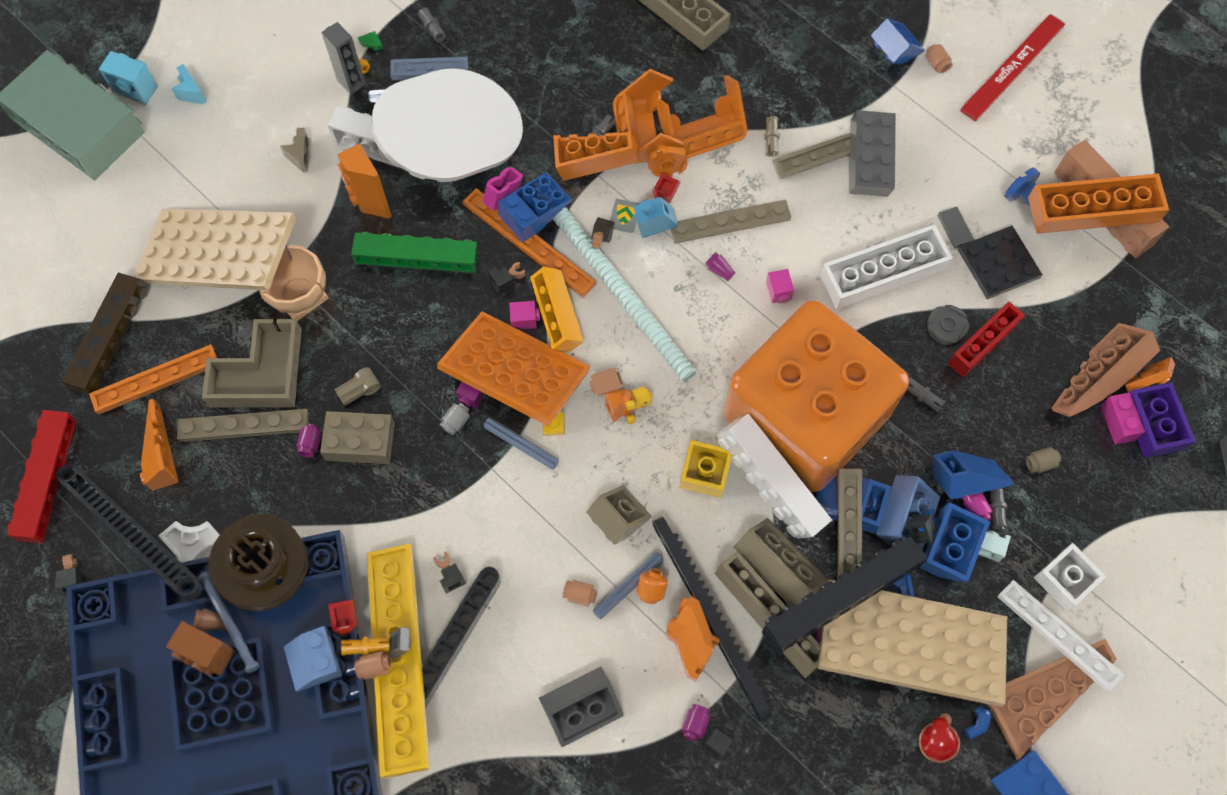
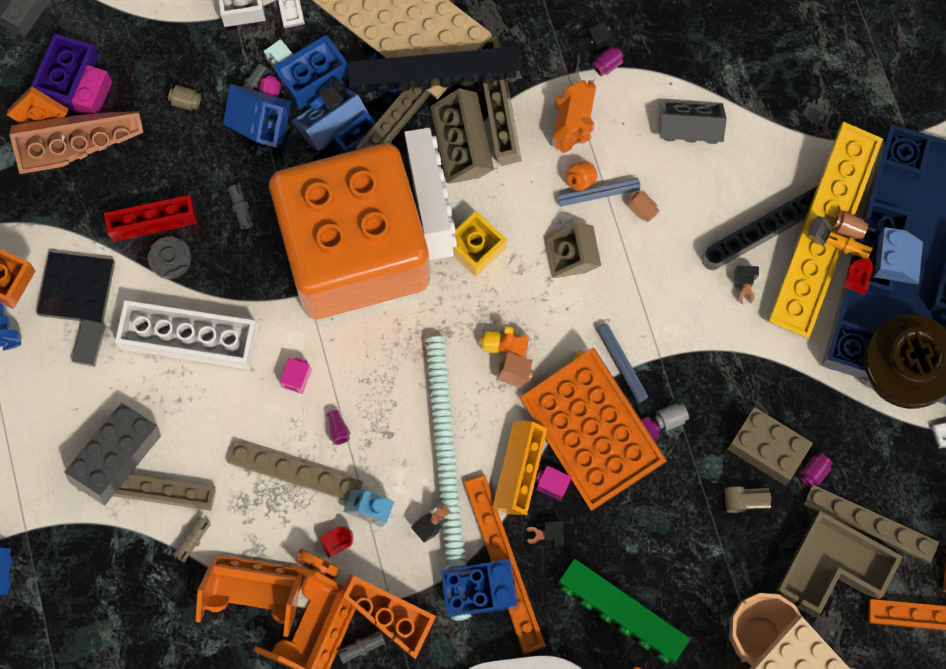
camera: 150 degrees left, 5 degrees up
(501, 186) = (496, 630): dark pink brick -> none
(624, 215) = (392, 540): light grey sticker -> none
(716, 625) = (545, 131): black gear -> none

